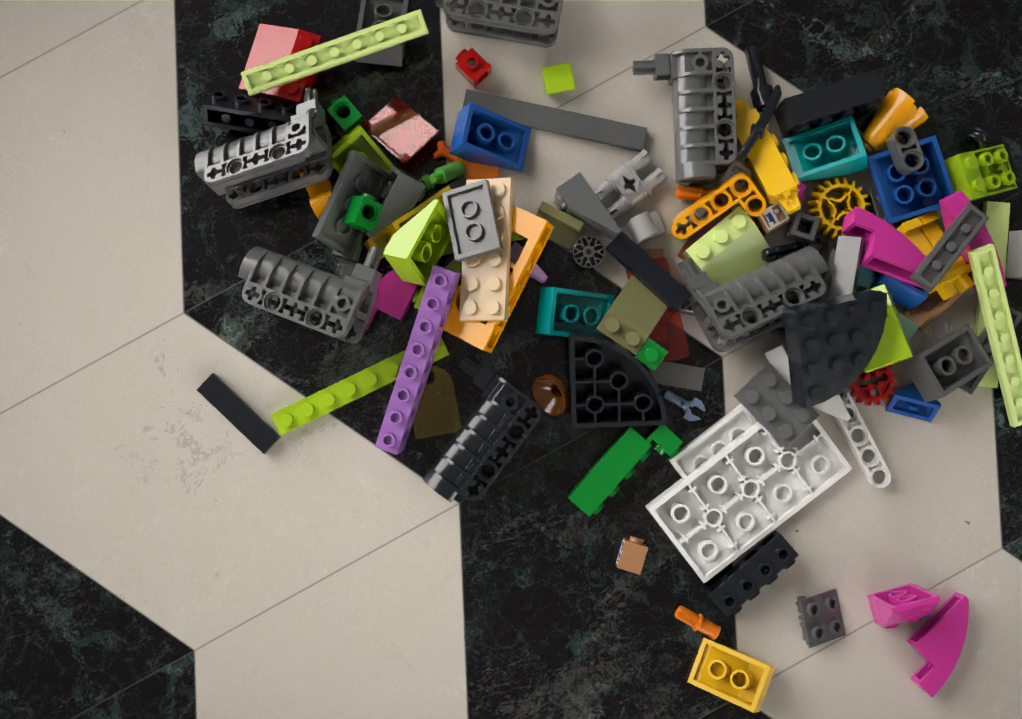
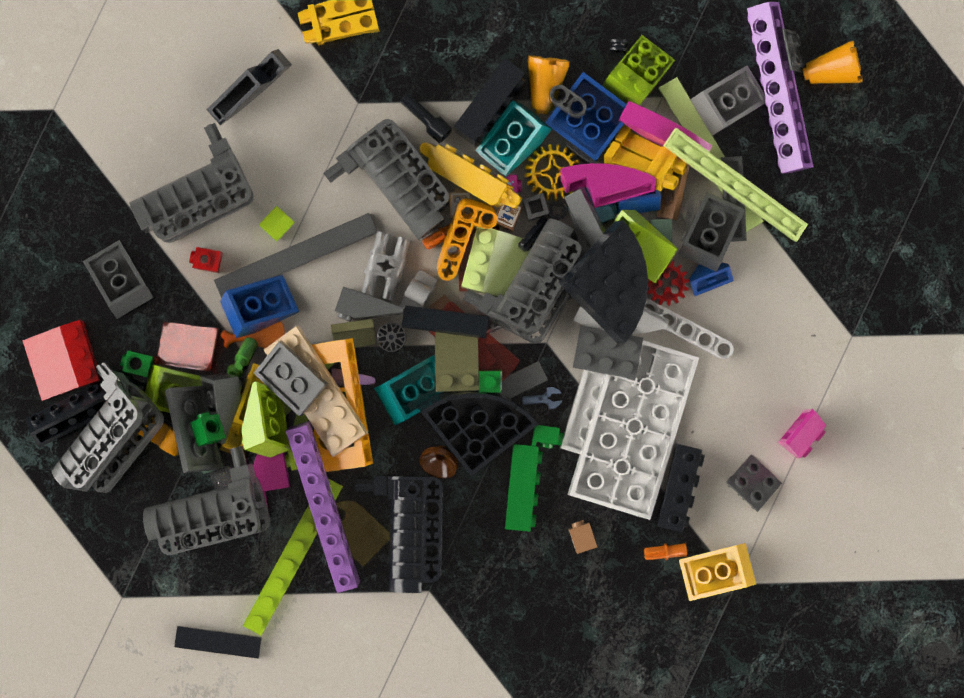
camera: 40 degrees left, 0 degrees up
(334, 52) = (100, 326): yellowish green tile -> none
(757, 130) = (450, 161): black sword -> none
(940, 643) = (852, 440): dark pink slope -> none
(949, 247) = (647, 152): dark grey tile -> none

